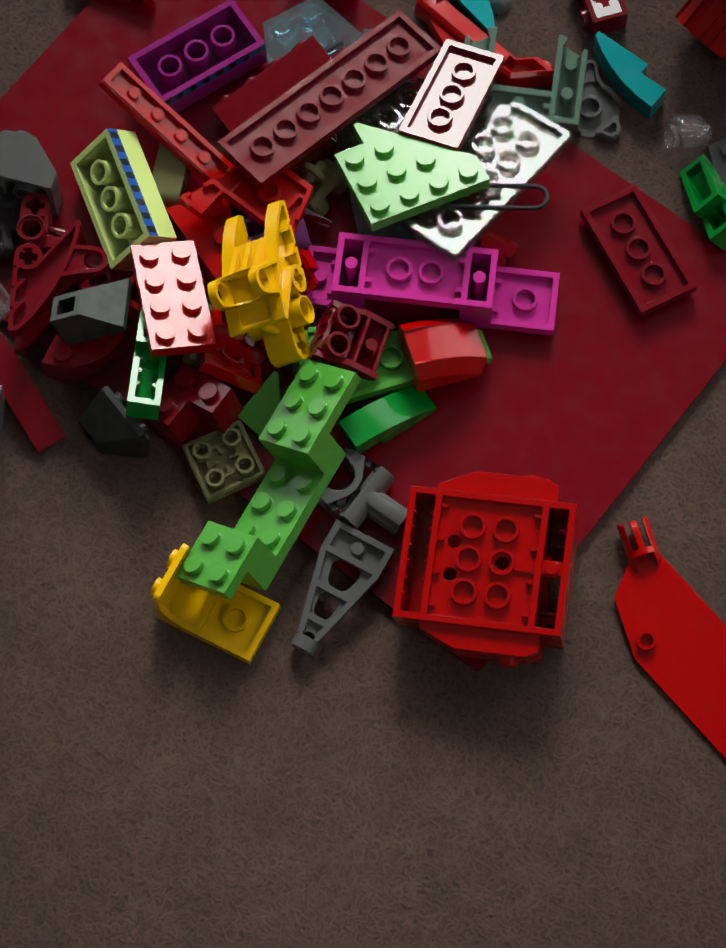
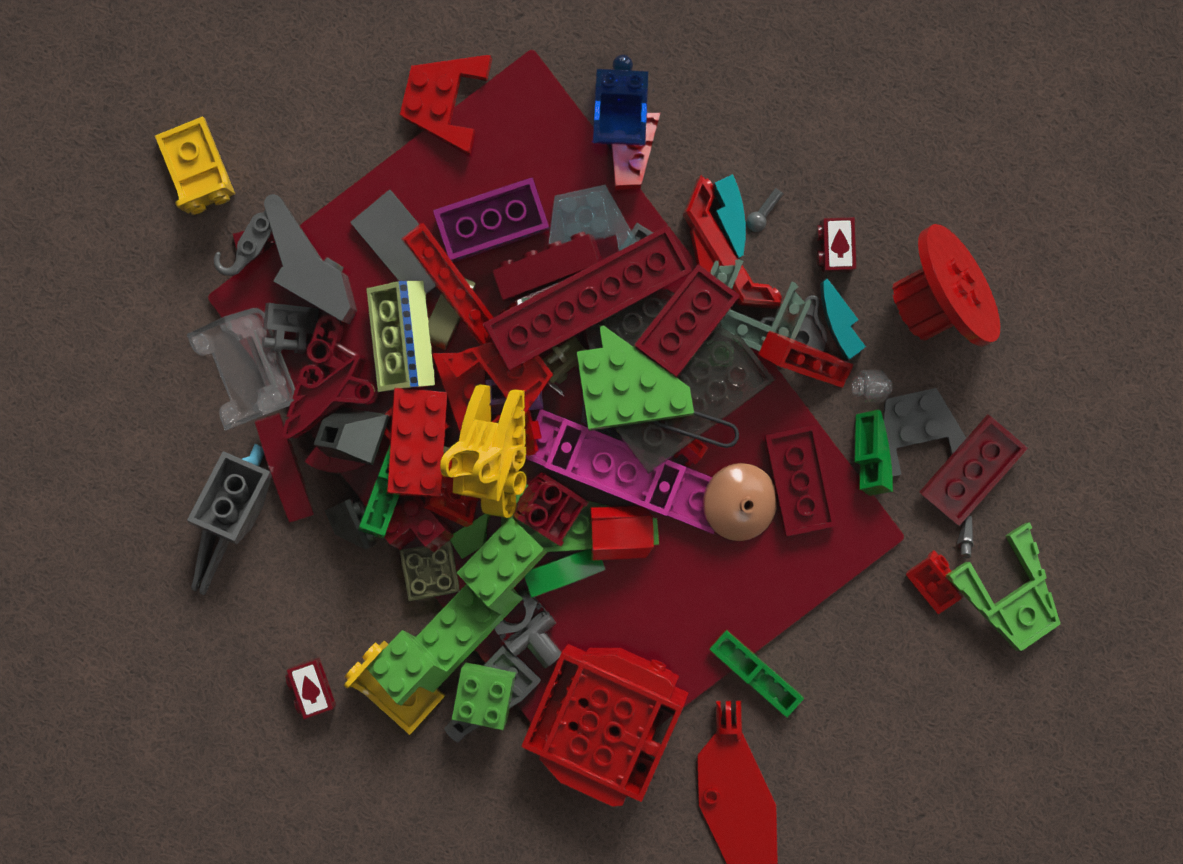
camera: 15 degrees right, 20 degrees up
(86, 109) = (382, 228): none -> dark grey tile
(111, 637) = (310, 688): none -> brick
(329, 576) = (483, 696): none -> bright green brick
(562, 296) = (726, 498): none -> nougat dish
(600, 113) = (805, 359): none -> red slope
(657, 482) = (756, 673): none -> green slope

